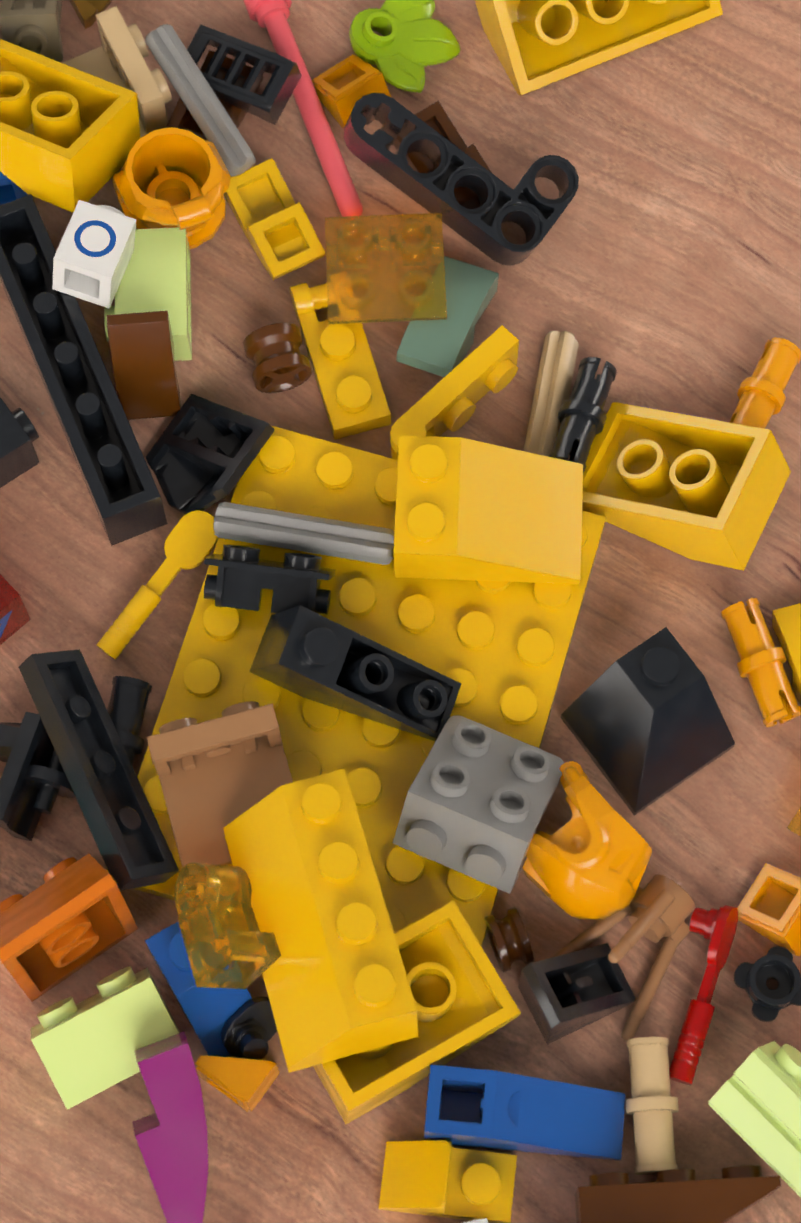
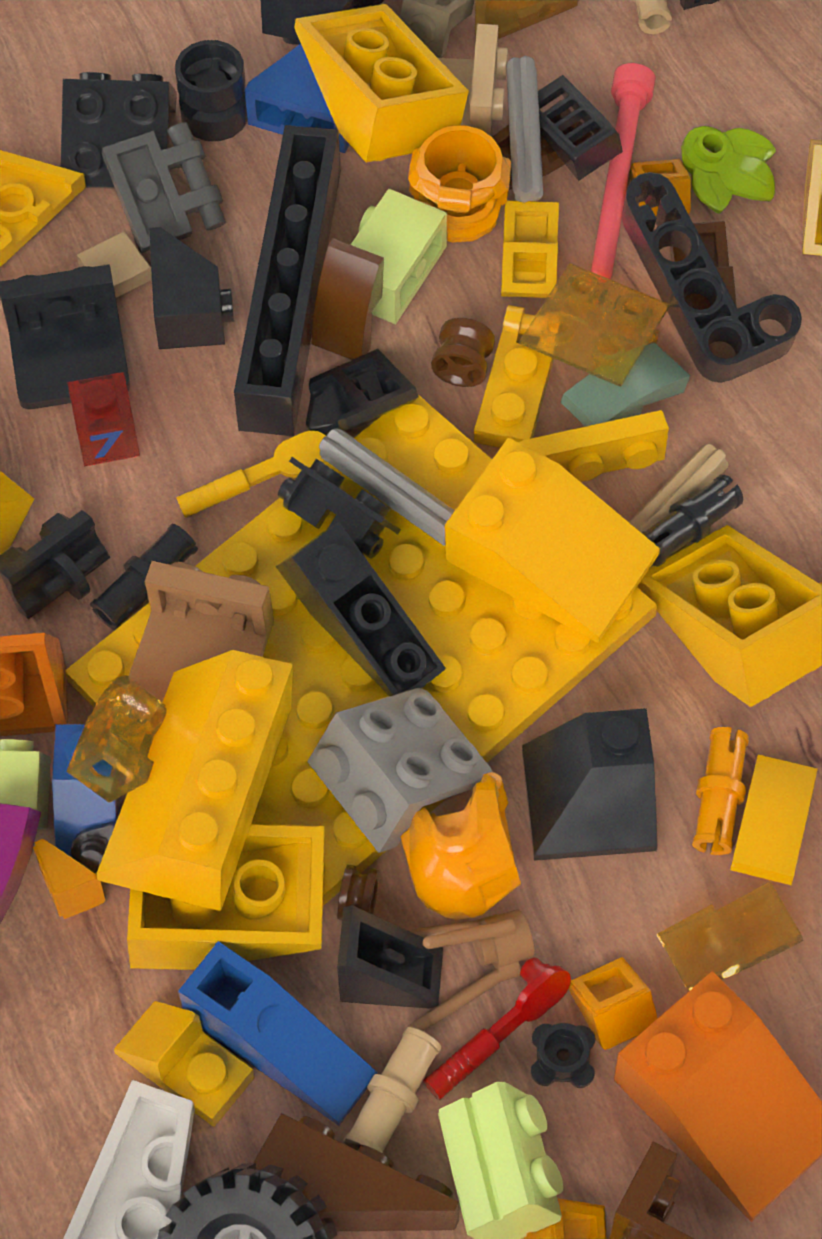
camera: 30 degrees right, 10 degrees down
(94, 253) = (354, 190): white brick -> none
(98, 769) = (107, 578): black plate -> none

